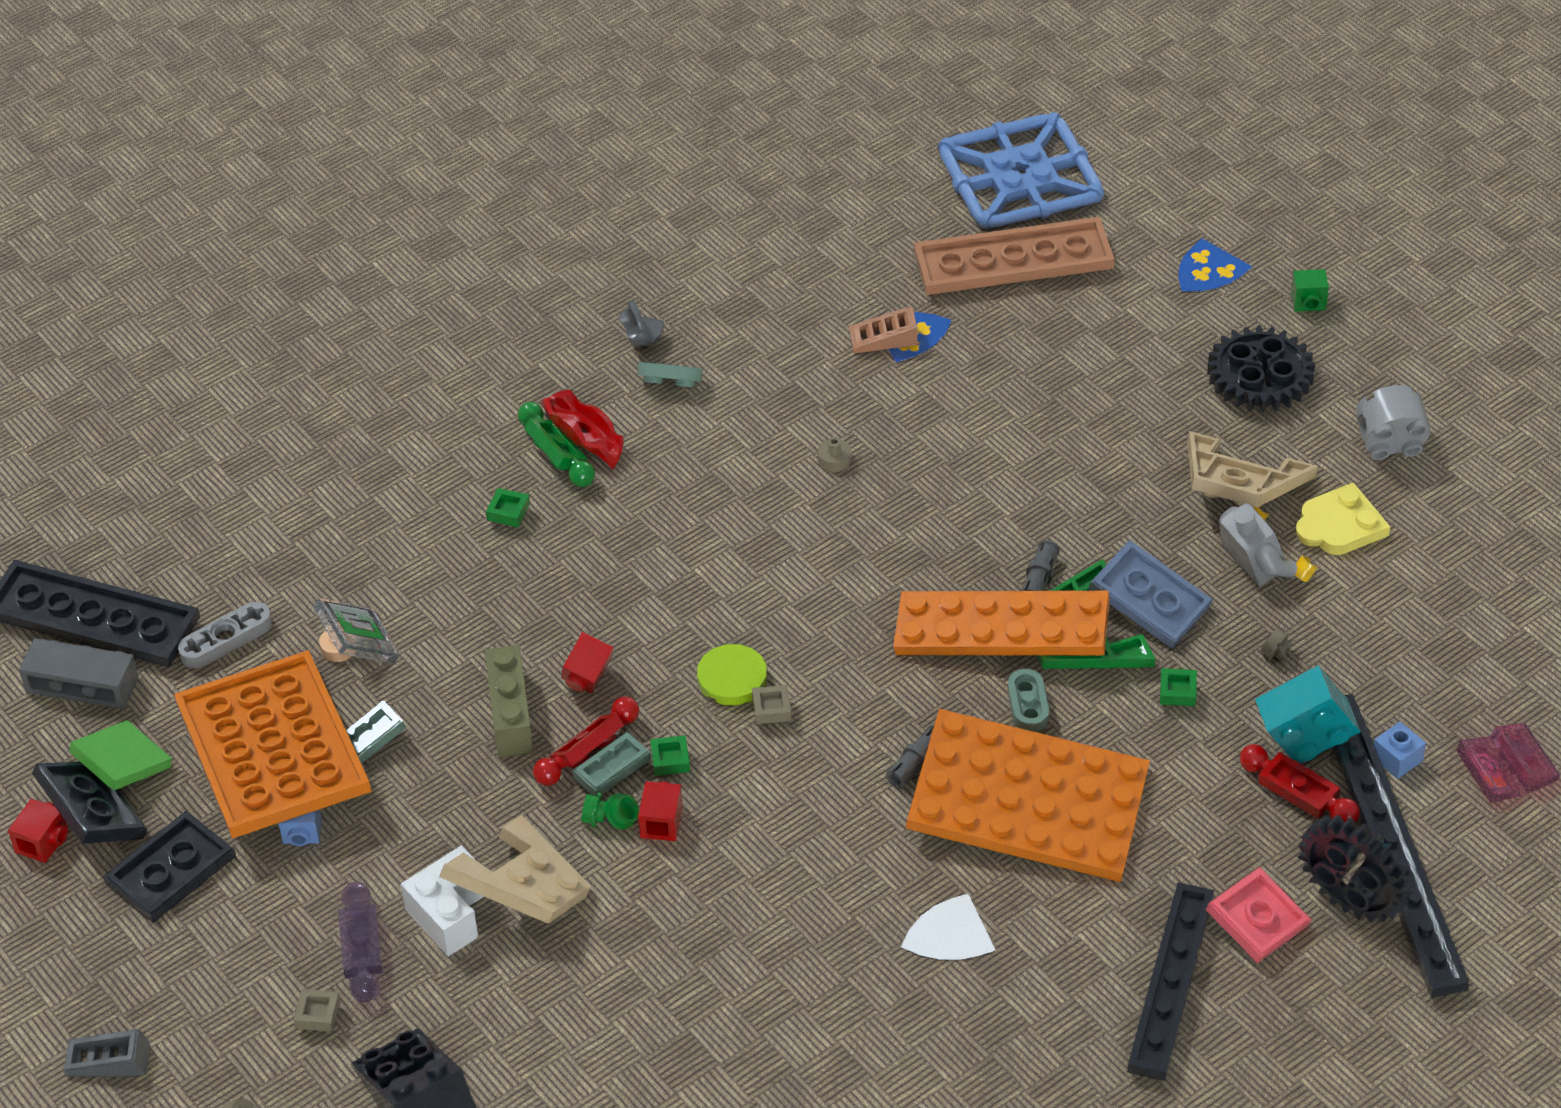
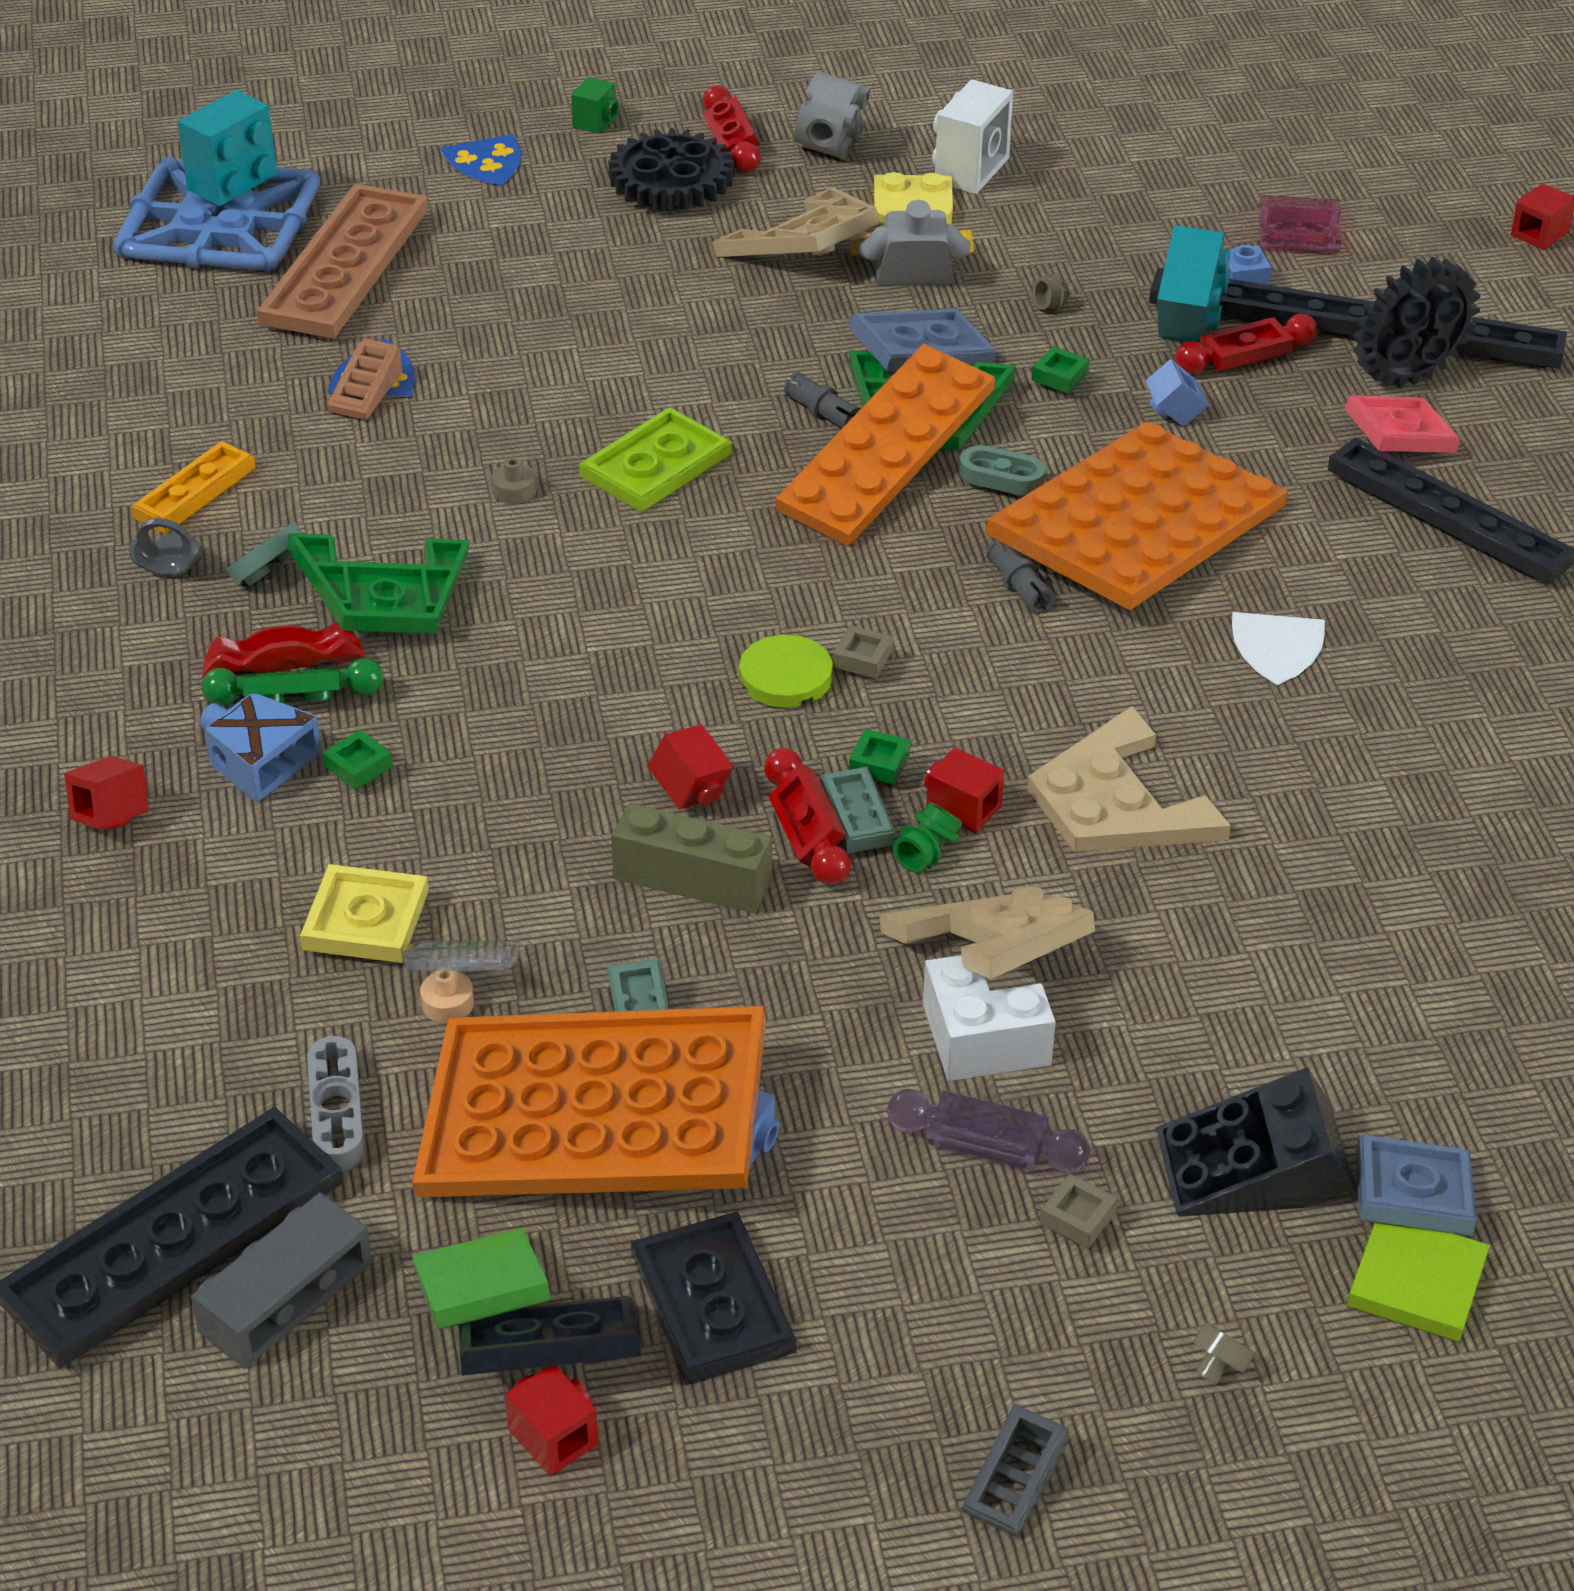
camera: 65 degrees left, 5 degrees down
(378, 573) = (364, 913): none -> light yellow plate
(400, 412) = (106, 792): none -> red brick
(489, 456) = (259, 742): none -> medium blue torso
(665, 449) = (378, 594): none -> green wing
(711, 885) = (1105, 806): none -> tan wing
(722, 308) = (195, 485): none -> light orange tile
(914, 513) = (655, 459): none -> lime tile
(1052, 134) = (227, 147): none -> teal brick
(1189, 763) = (1175, 393): none -> medium blue plate
(1348, 377) = (731, 127): none -> red plate
(1430, 514) = (973, 135): none -> white brick

